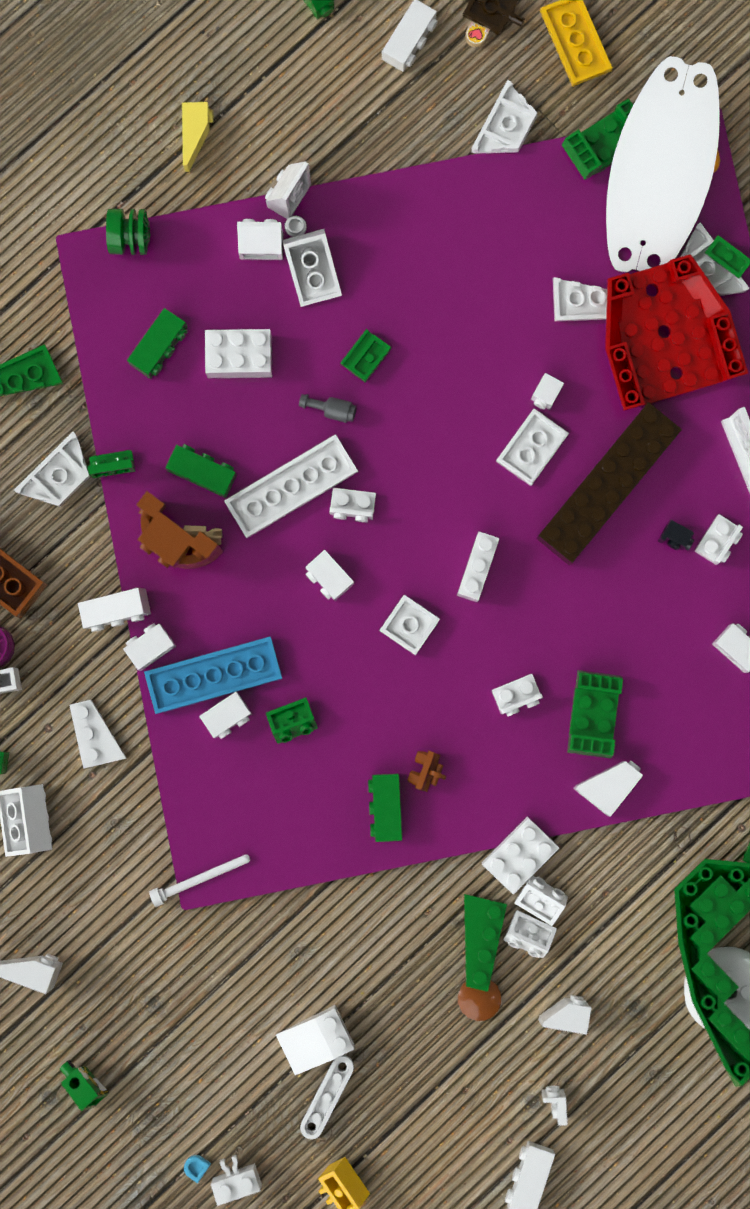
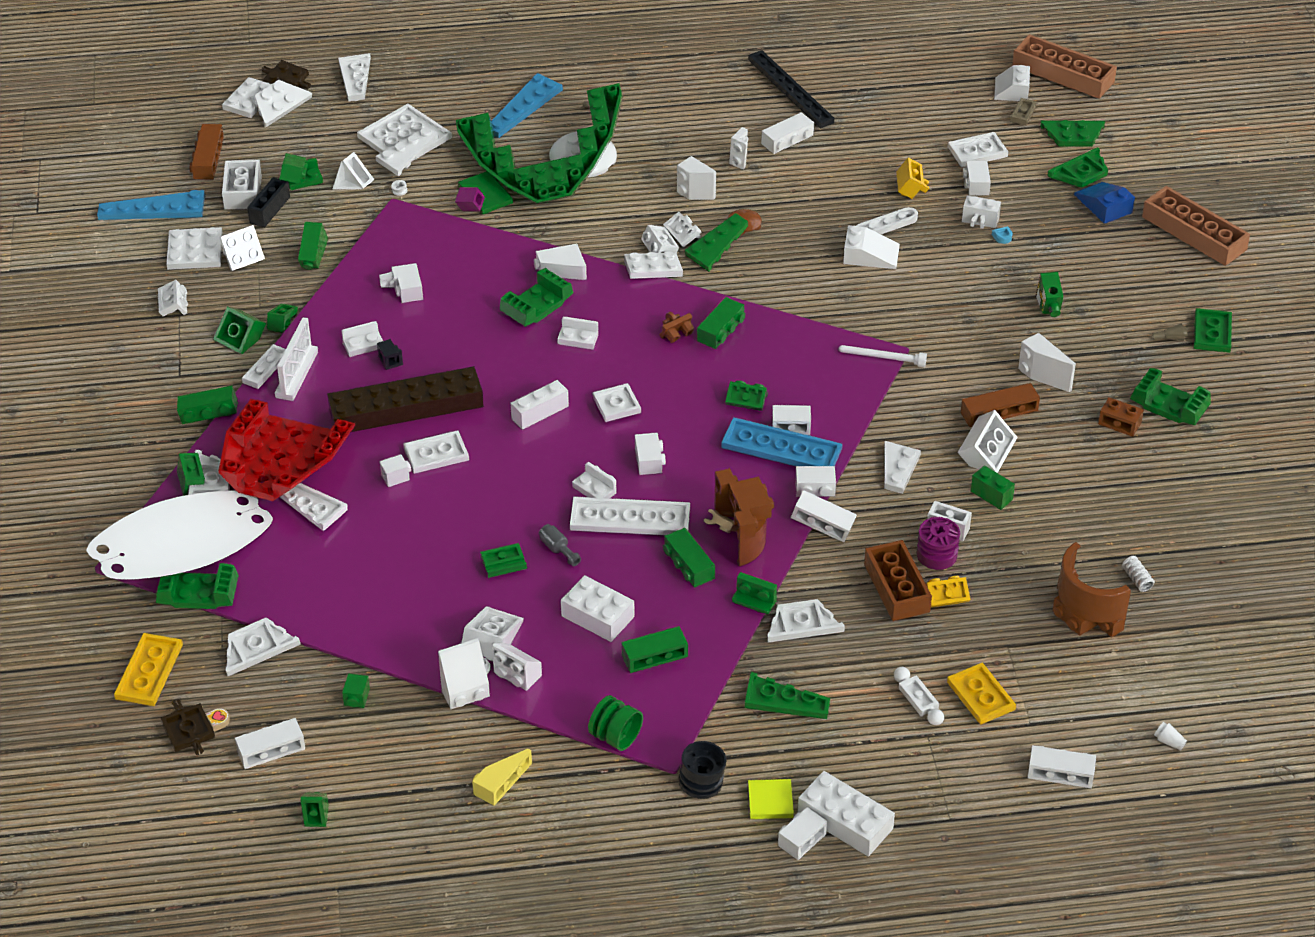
camera: 145 degrees left, 40 degrees down
(20, 232) = (702, 769): none -> black wheel
(43, 885) = (1006, 402): none -> dark orange brick
(382, 134) = (356, 690): none -> green brick

